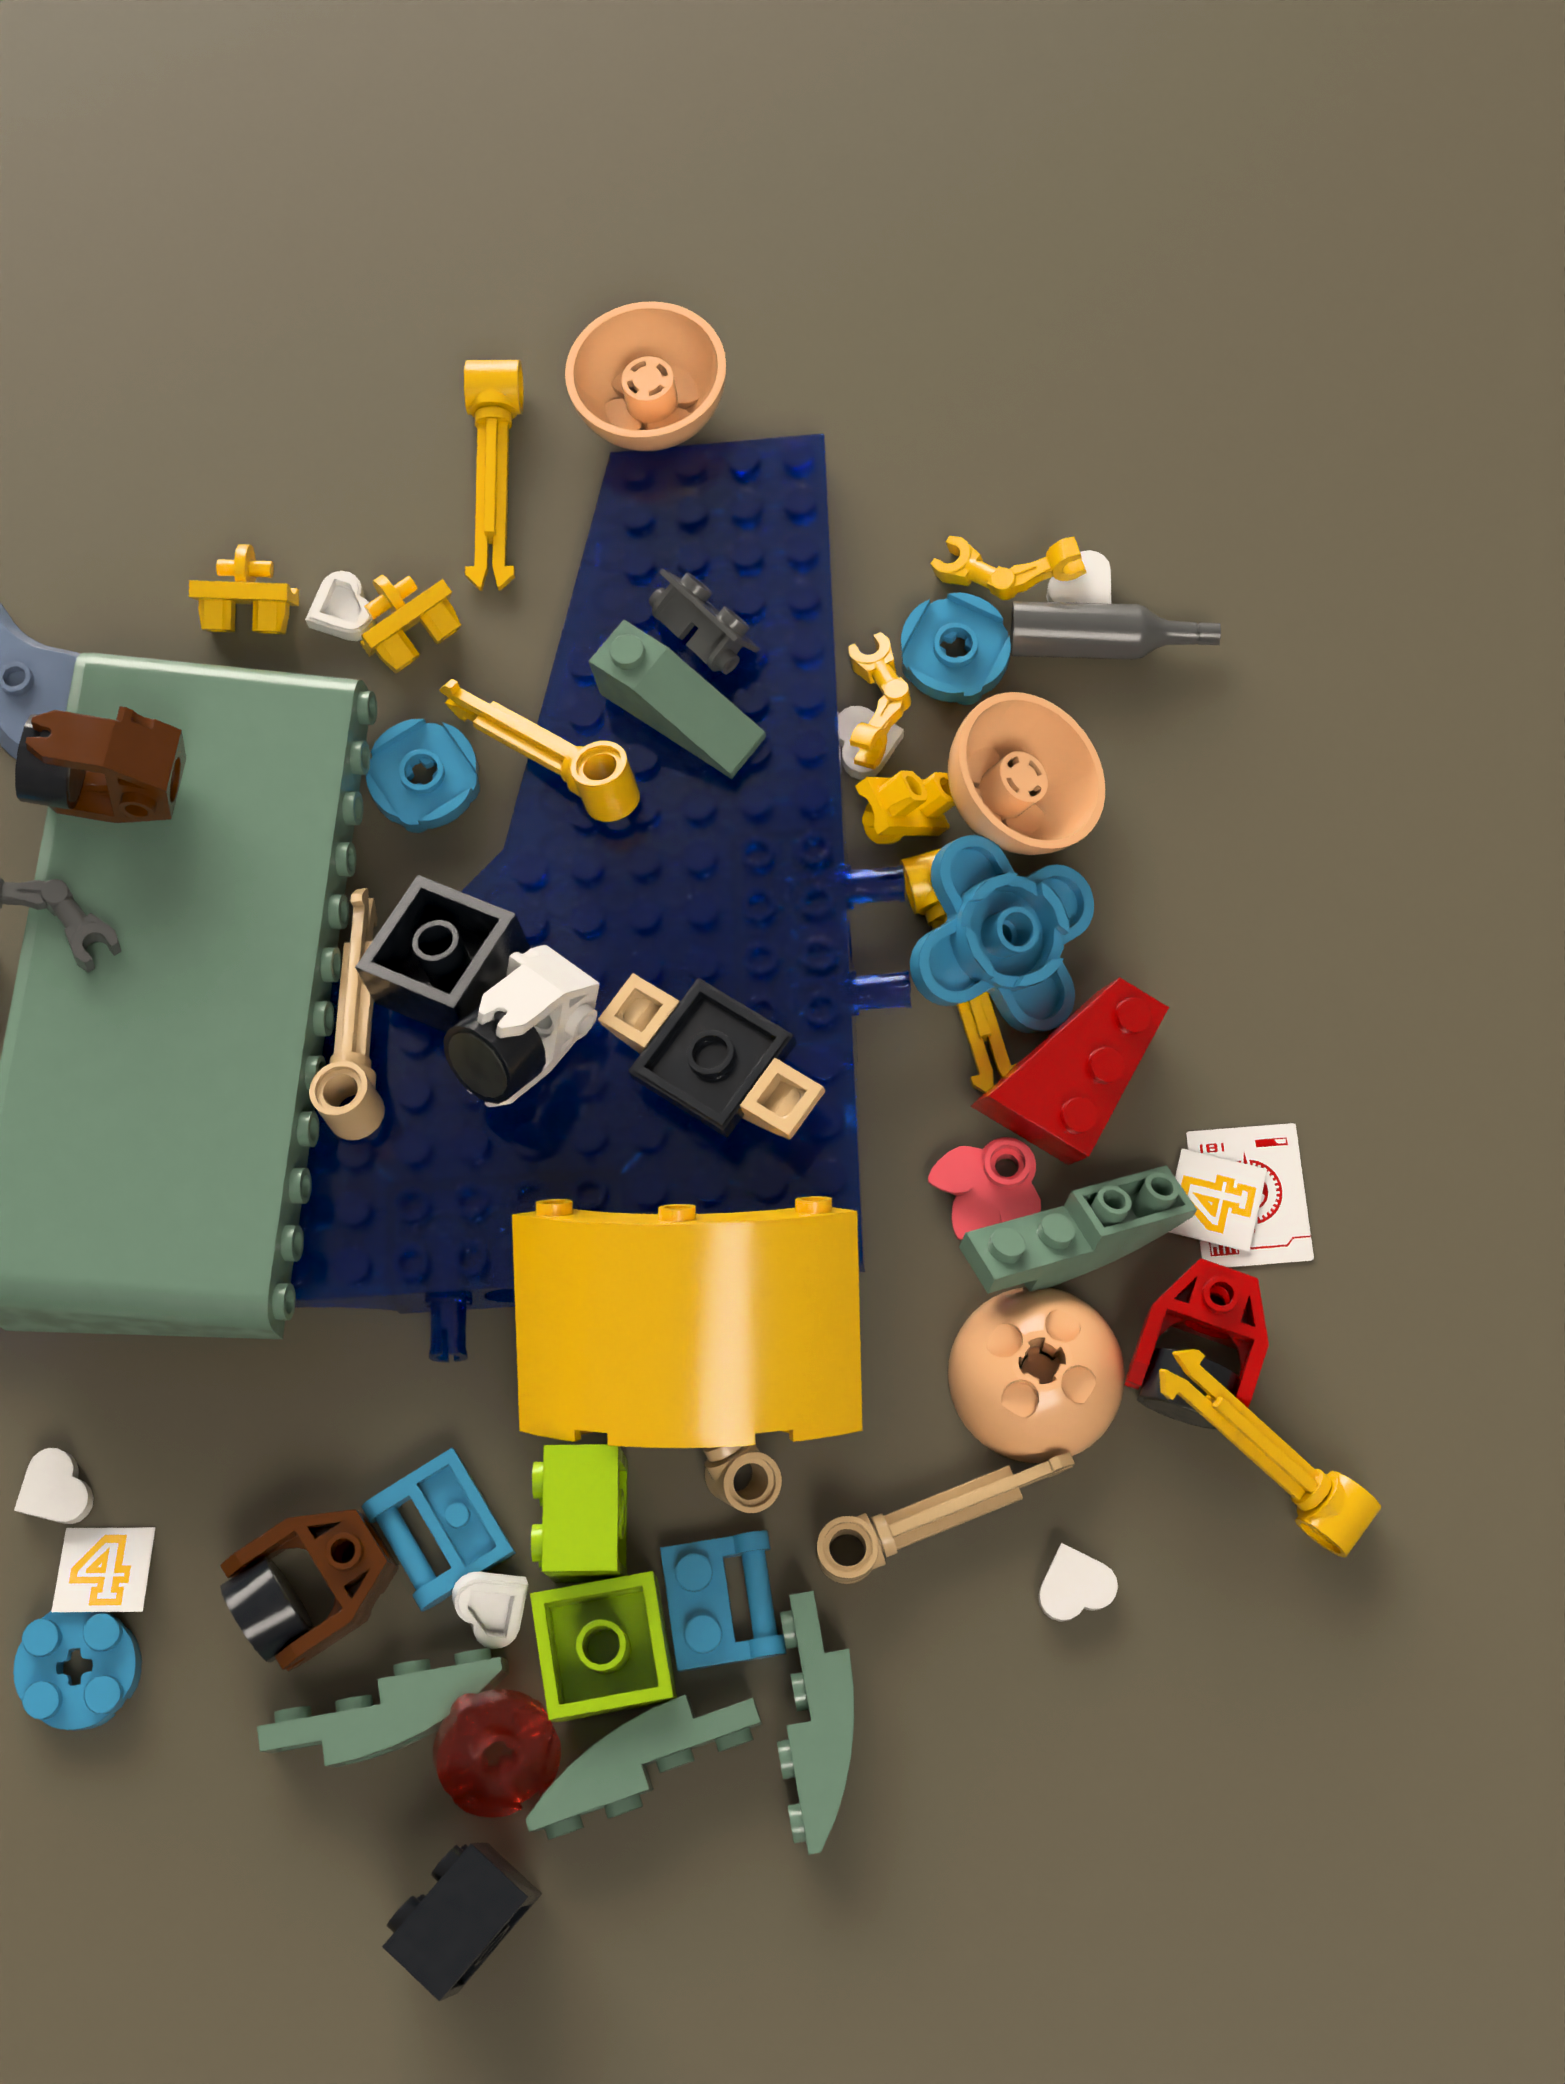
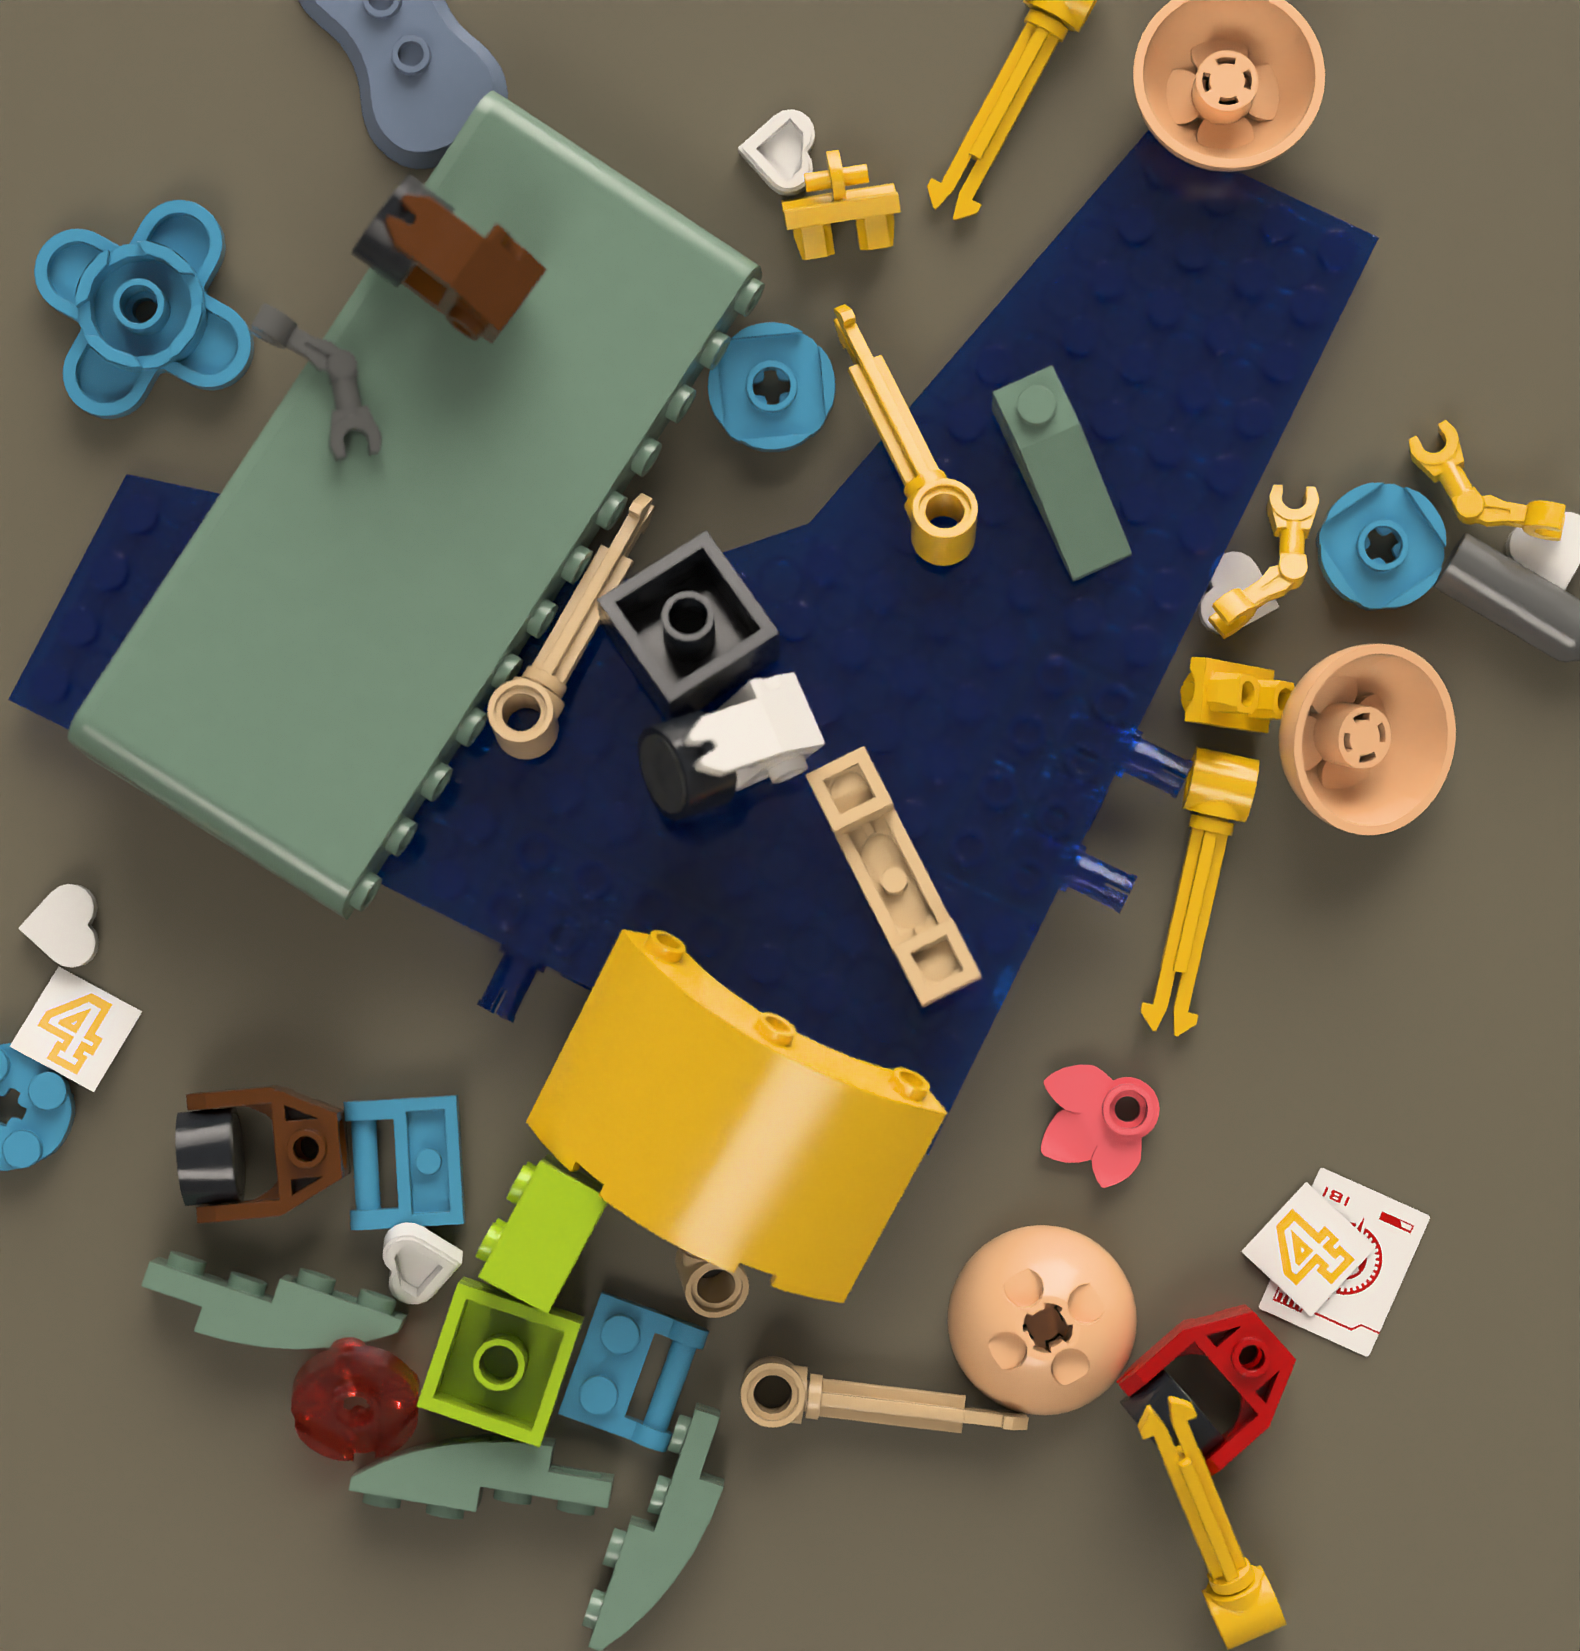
camera: 25 degrees right, 15 degrees up
(219, 598) = (663, 76): yellow hips -> none
(460, 1919) = (249, 1535): black brick -> none
(686, 606) = (1131, 370): dark grey hinge -> none
(710, 1056) = (894, 876): black tile -> none
(1002, 935) = (1252, 883): dark azure plant -> none
(1075, 1584) = (965, 1534): white tile -> none
(1077, 1075) = (1247, 1060): red wedge -> none
(1081, 1236) = (1156, 1218): sand green slope -> none

